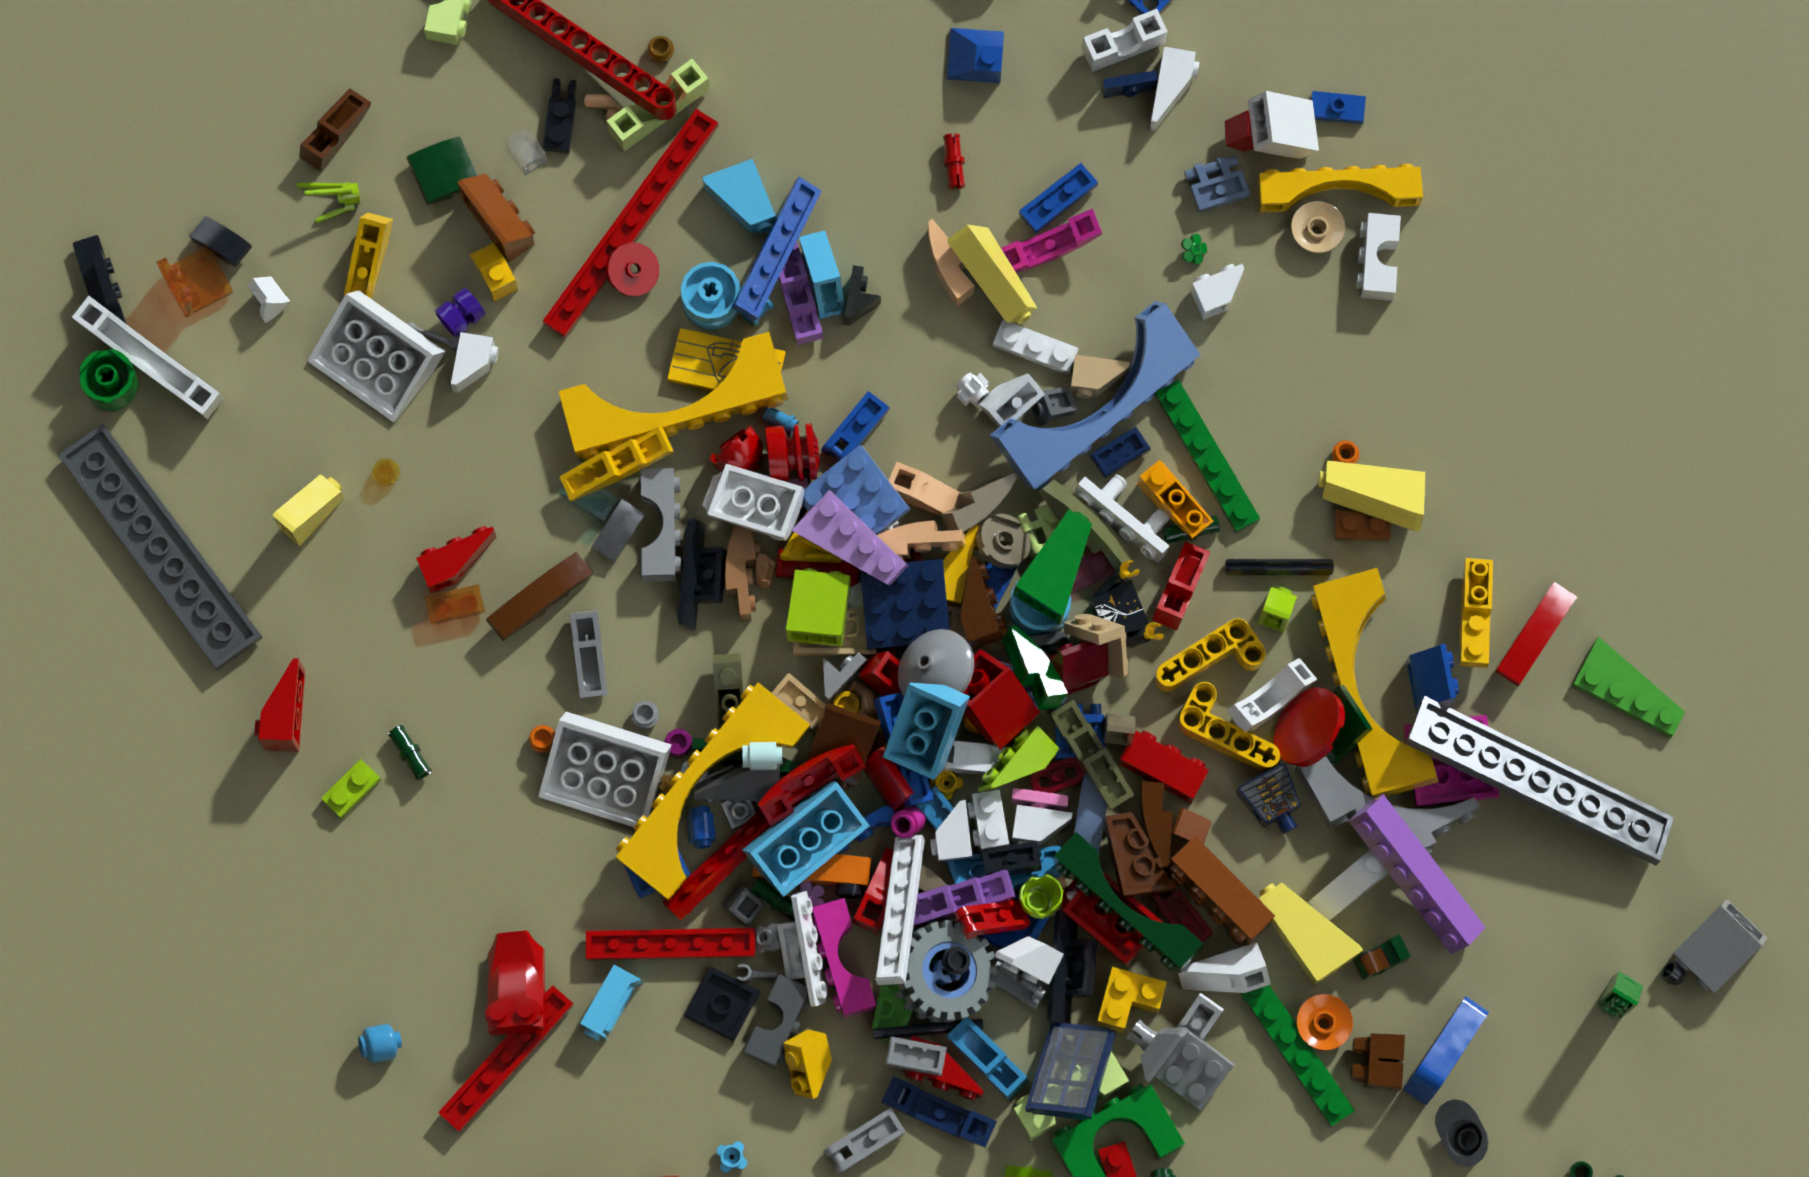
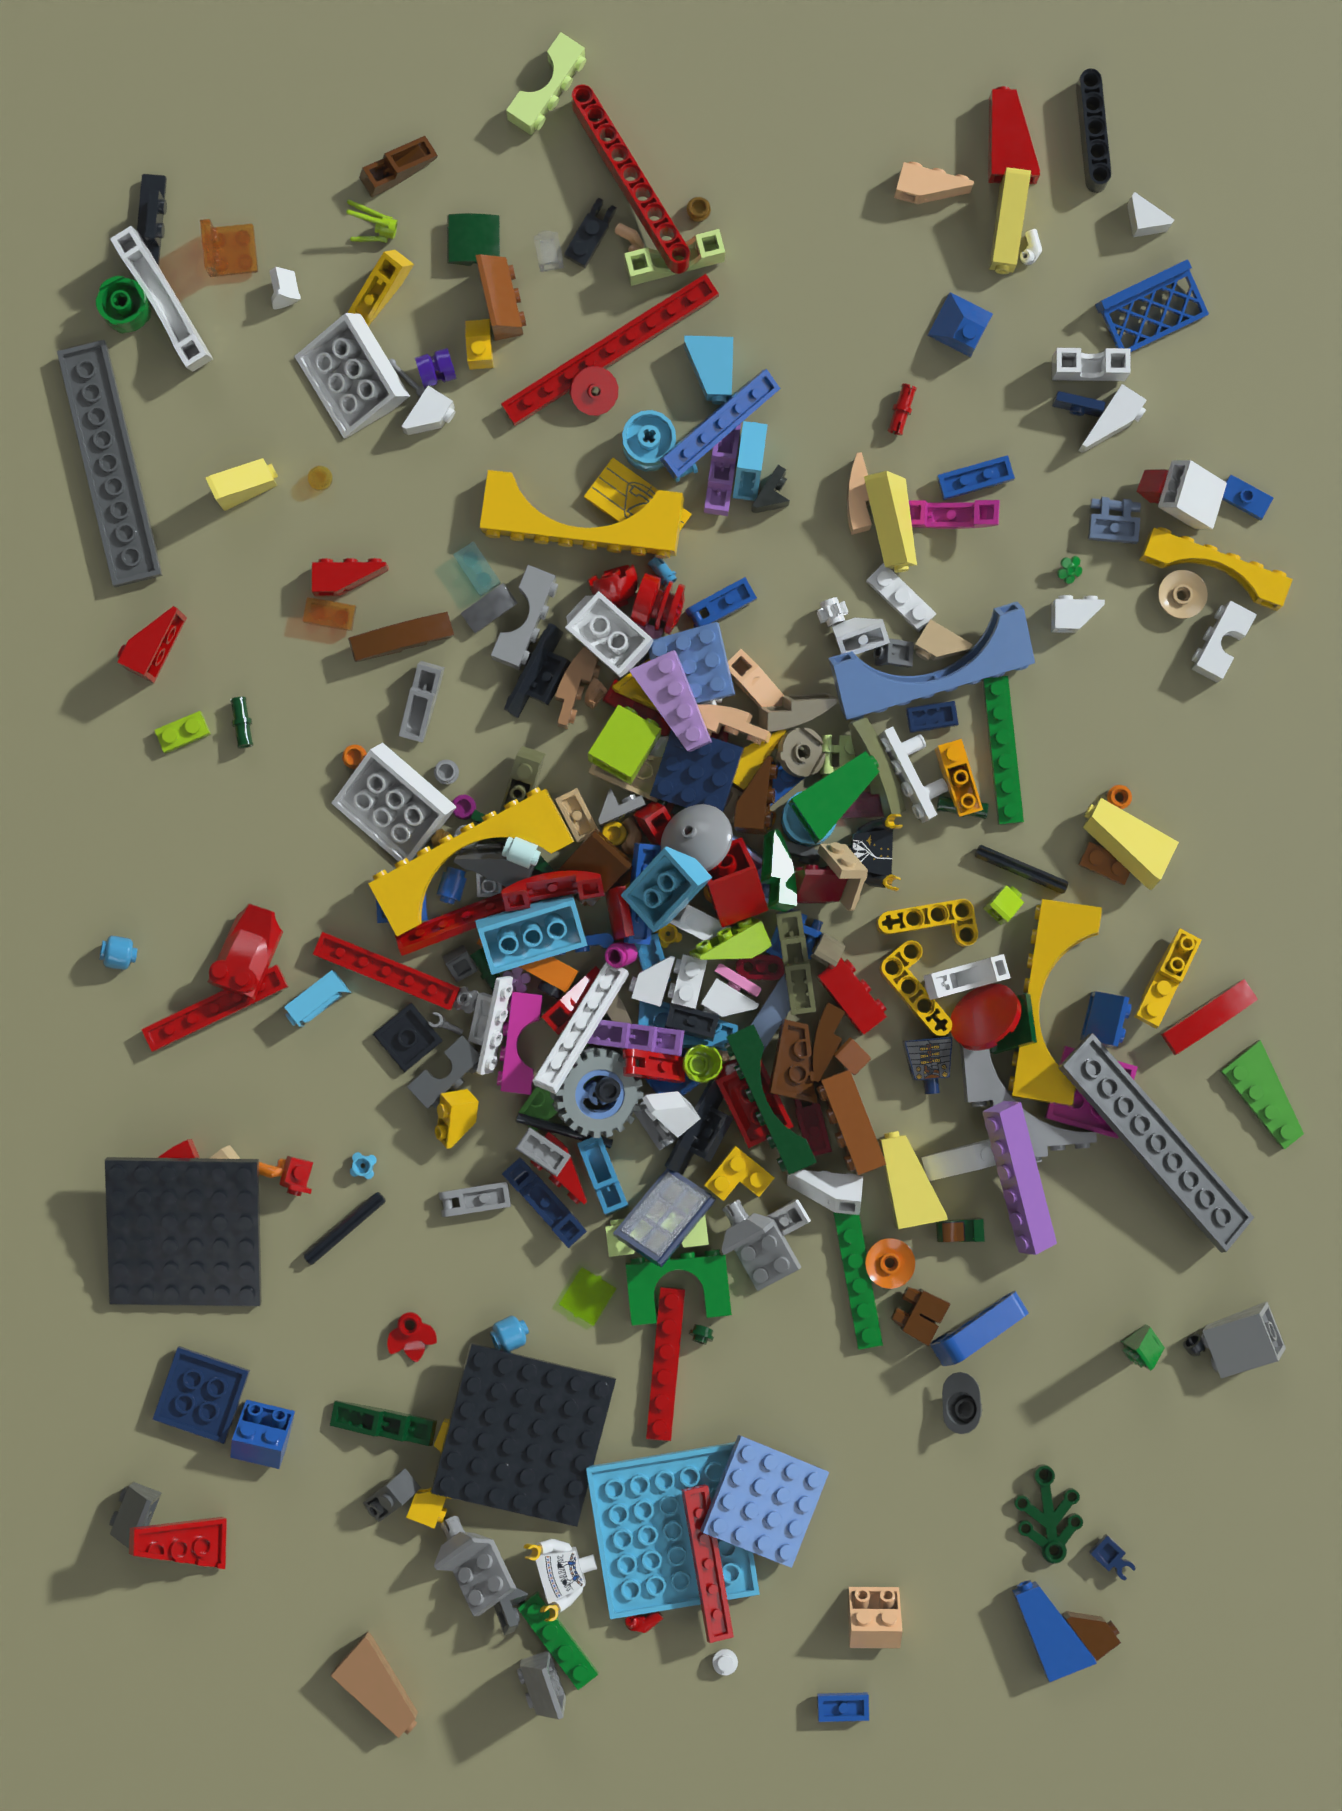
camera: 20 degrees right, 10 degrees up
(220, 240) = (264, 223): black slope -> none
(616, 464) = (509, 552): yellow slope -> none
(1181, 586) = (933, 851): red slope -> none

